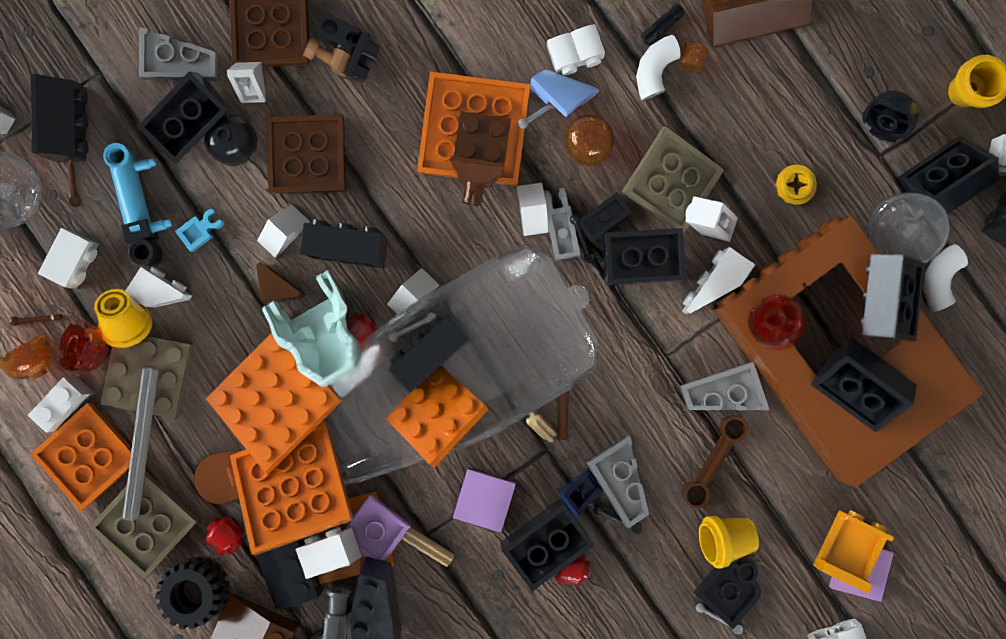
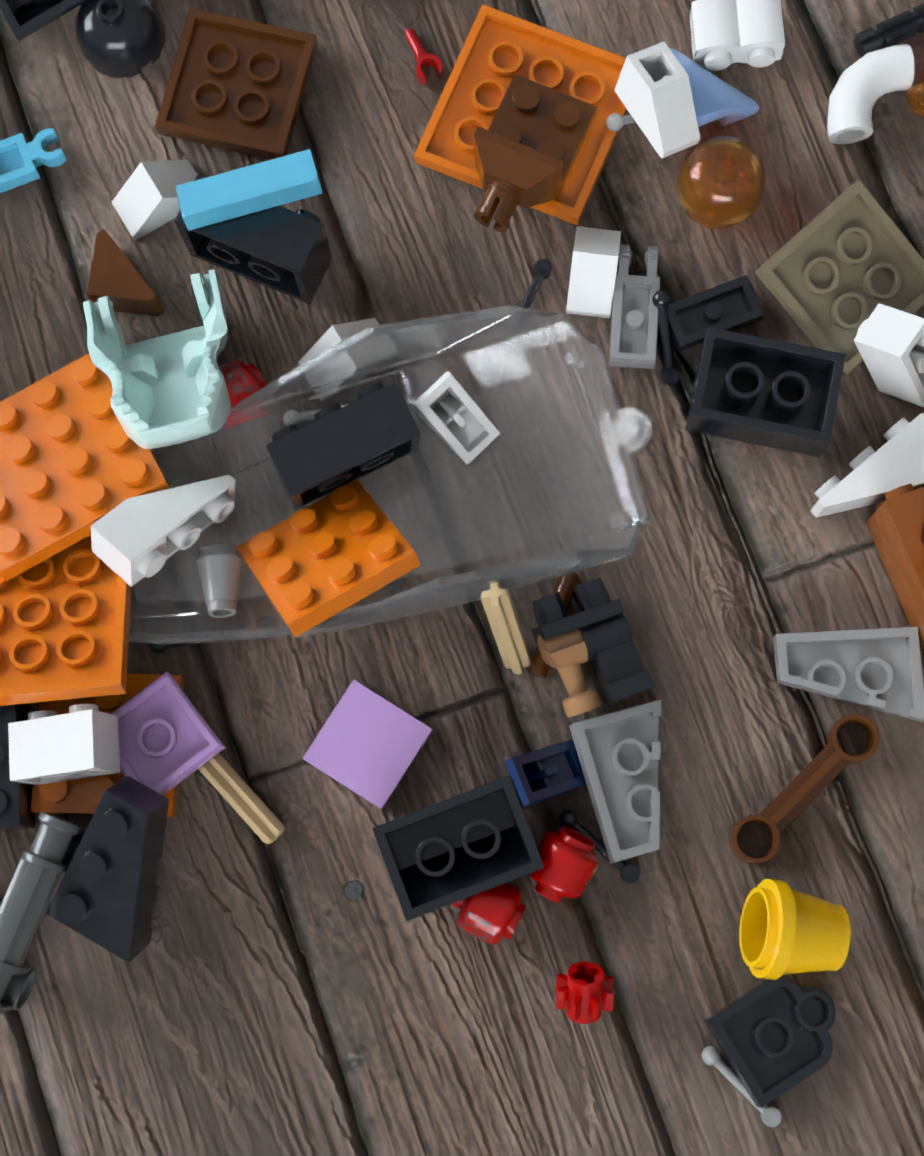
camera: 25 degrees right, 10 degrees down
(334, 226) = (248, 189): none -> medium azure slope
(338, 424) = (154, 526): none -> white slope
(382, 439) = (220, 578): none -> light grey cone
(403, 108) = (422, 58): none -> red hand
(483, 317) = (456, 418): none -> white slope
(504, 215) = (542, 271): none -> black hinge
(545, 107) = (659, 99): none -> white slope
(585, 414) = (593, 636): none -> black hips
(604, 534) = (567, 864): none -> red head
(630, 597) = (584, 992): none -> red gear

